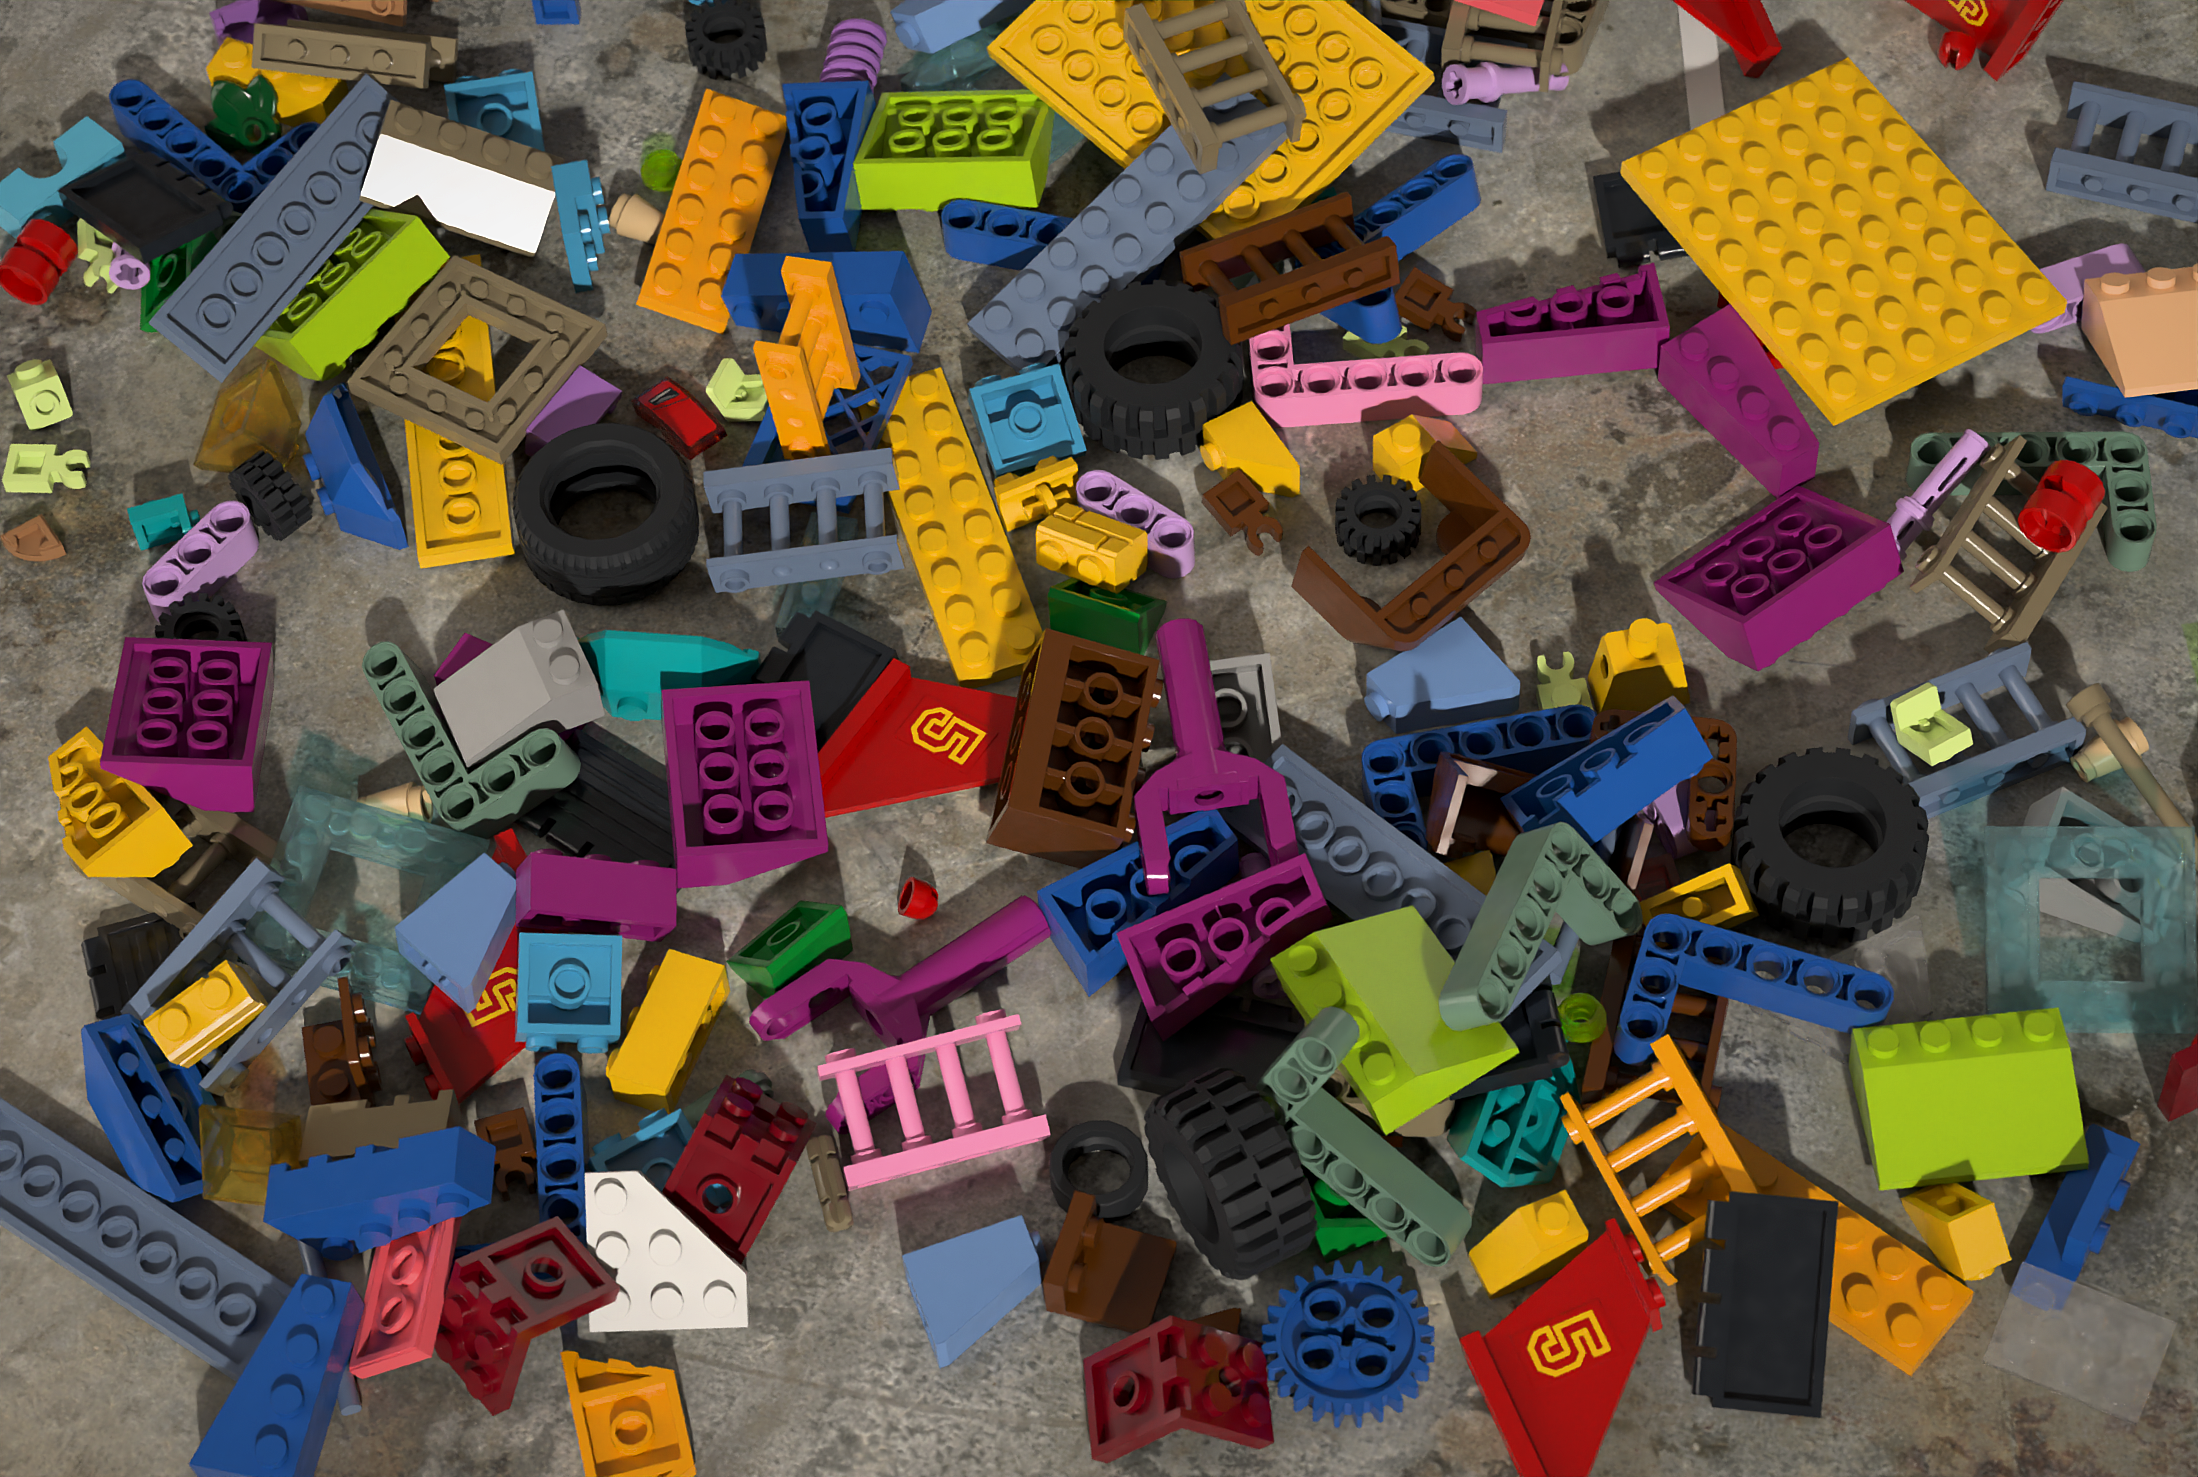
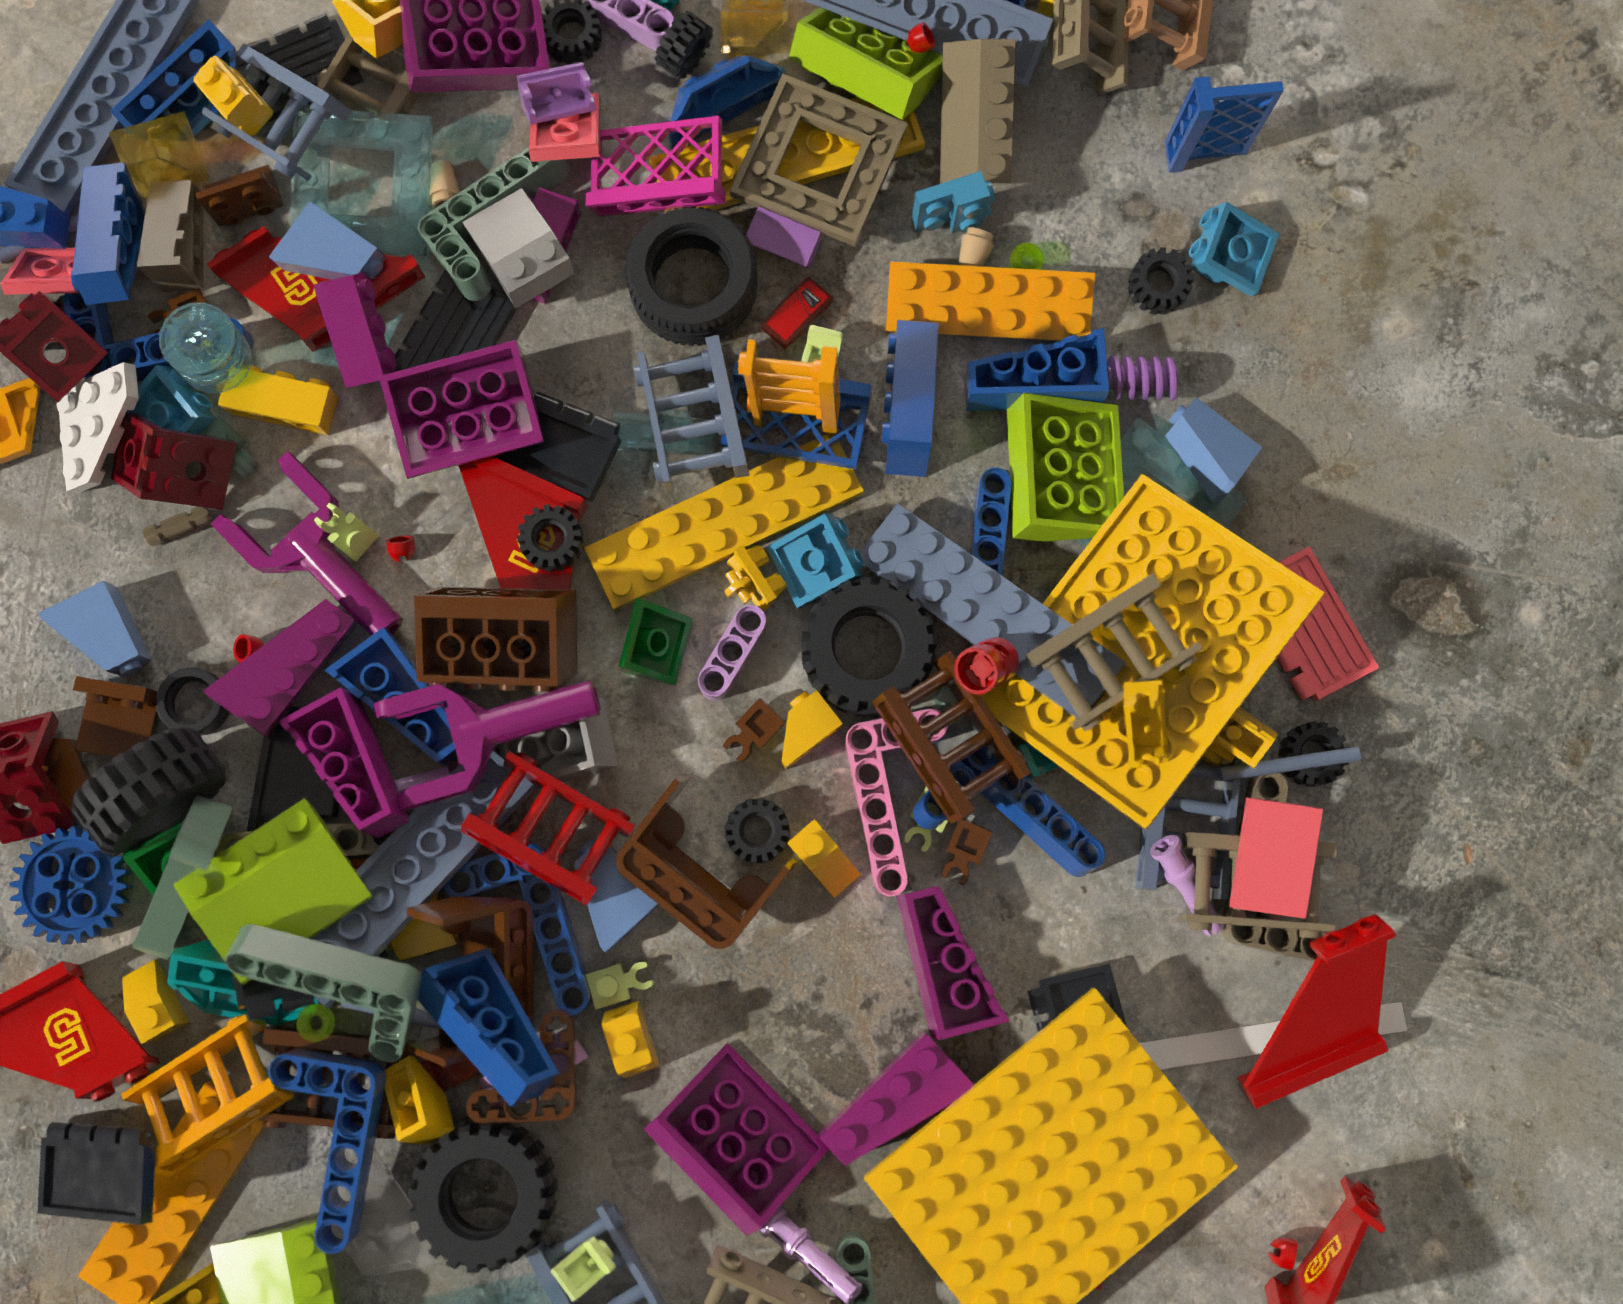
camera: 75 degrees right, 25 degrees up
(303, 641) = (556, 93): none -> medium lavender hinge
(346, 222) = (921, 38): none -> red hinge
(353, 638) = (567, 137): none -> coral tile
(481, 543) = (660, 195): none -> dark pink fence
(498, 106) = (1053, 128): dark azure plate -> none
(568, 991) = (281, 325): dark azure plate -> none
(588, 1065) = (205, 347): none -> clear light blue wheel
(639, 665) = (561, 340): teal wedge -> none
(793, 946) = (352, 467): green slope -> none
(885, 947) = (347, 532): none -> yellowish green plate
(918, 1149) = (195, 591): bright pink fence -> none
(937, 677) = (536, 523): none -> black tyre
(1039, 1084) = (245, 646): none -> red hinge
(1077, 1030) = (281, 670): none -> magenta wedge
(1091, 548) = (698, 623): yellow brick -> none
(1206, 210) = (986, 665): none -> red wheel
(1303, 45) = (1145, 721): none -> yellow hinge
(1367, 747) = (547, 864): none -> red fence

